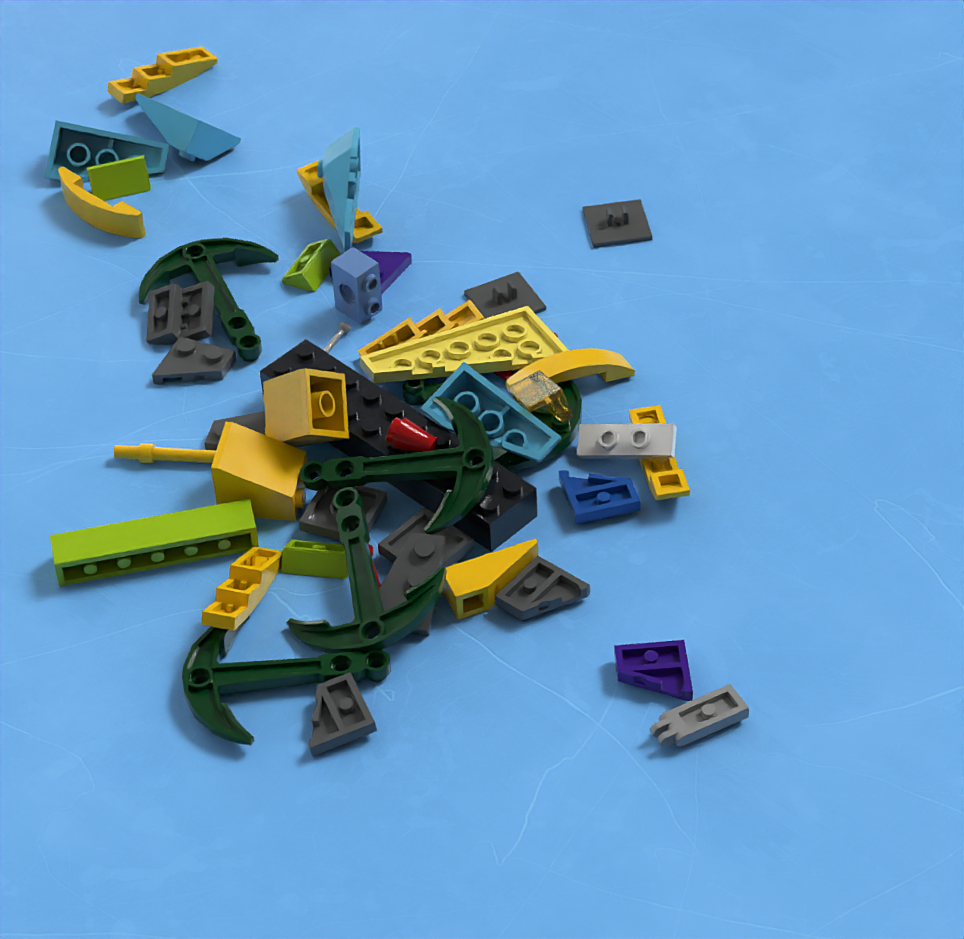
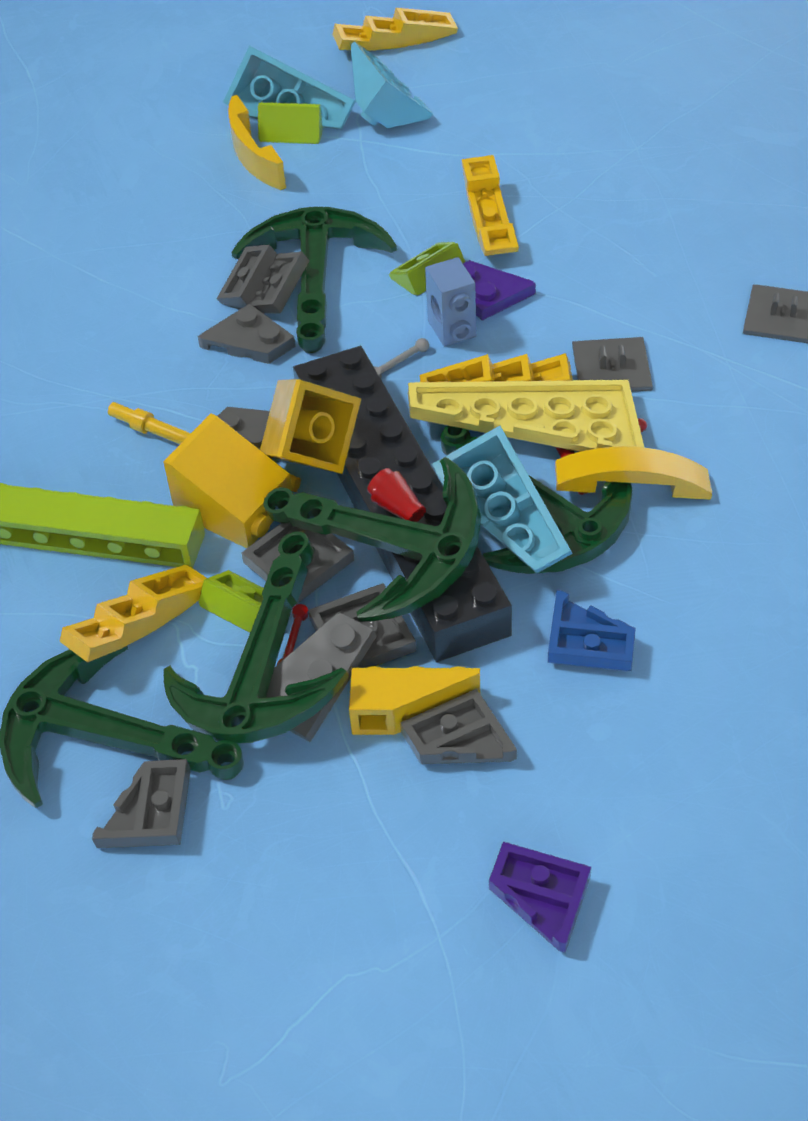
camera: 25 degrees right, 5 degrees up
(341, 182) = (497, 183): medium azure wedge -> none
(540, 391) = (573, 486): clear yellow panel -> none
(626, 441) = (654, 580): white plate -> none
(661, 474) = (684, 608): yellow slope -> none
(700, 717) = (559, 983): light grey hinge -> none

